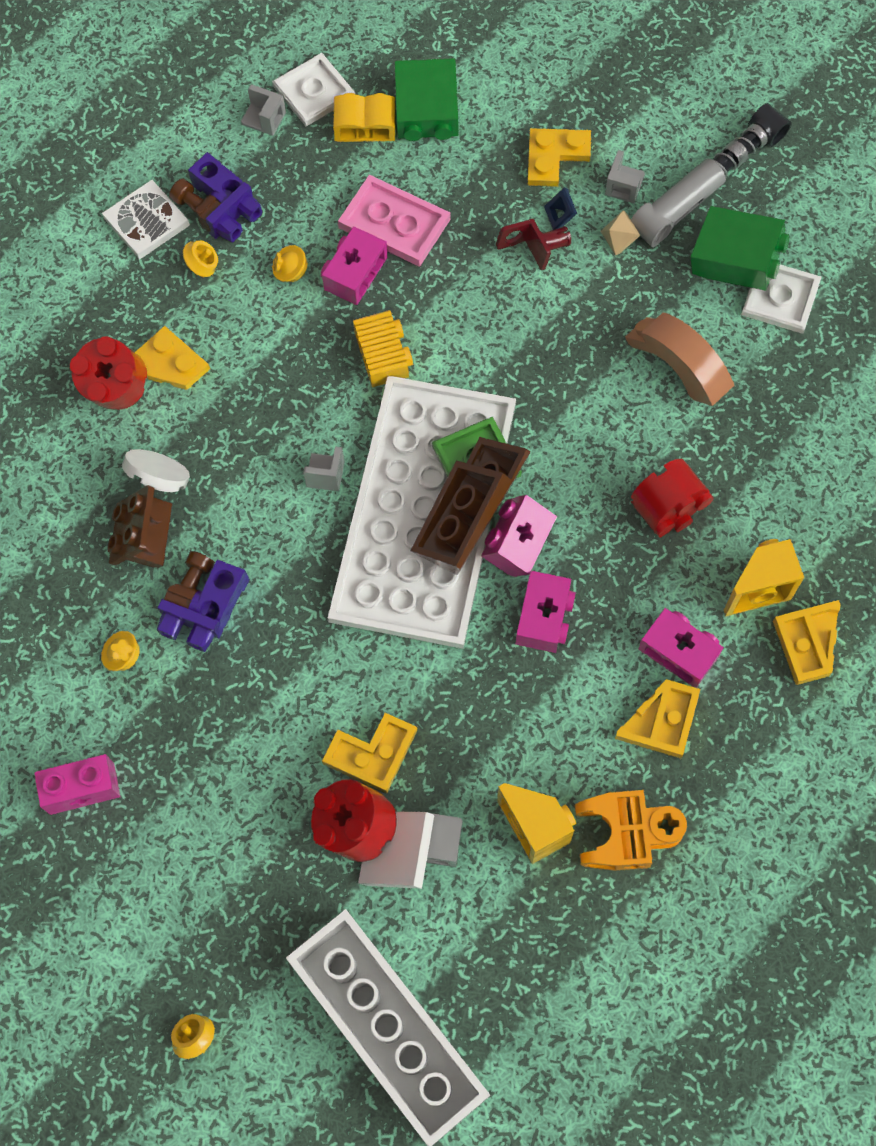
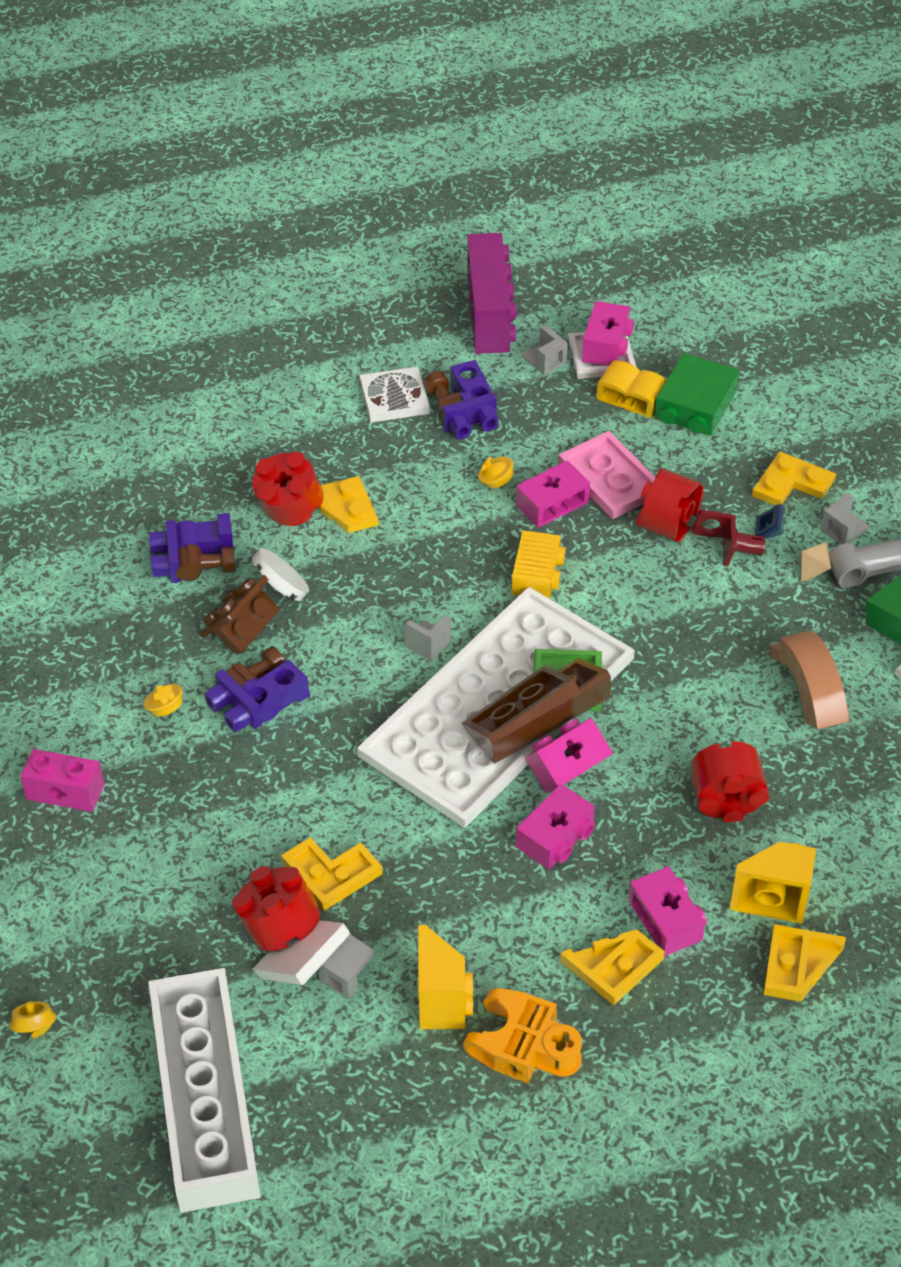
camera: 25 degrees right, 20 degrees down
(45, 477) = (192, 548): none -> dark purple hips
(179, 69) = (490, 293): none -> magenta brick
(200, 258) = (421, 437): yellow hat -> none
(313, 70) = (607, 333): none -> dark pink brick
(469, 233) = (669, 504): none -> red brick

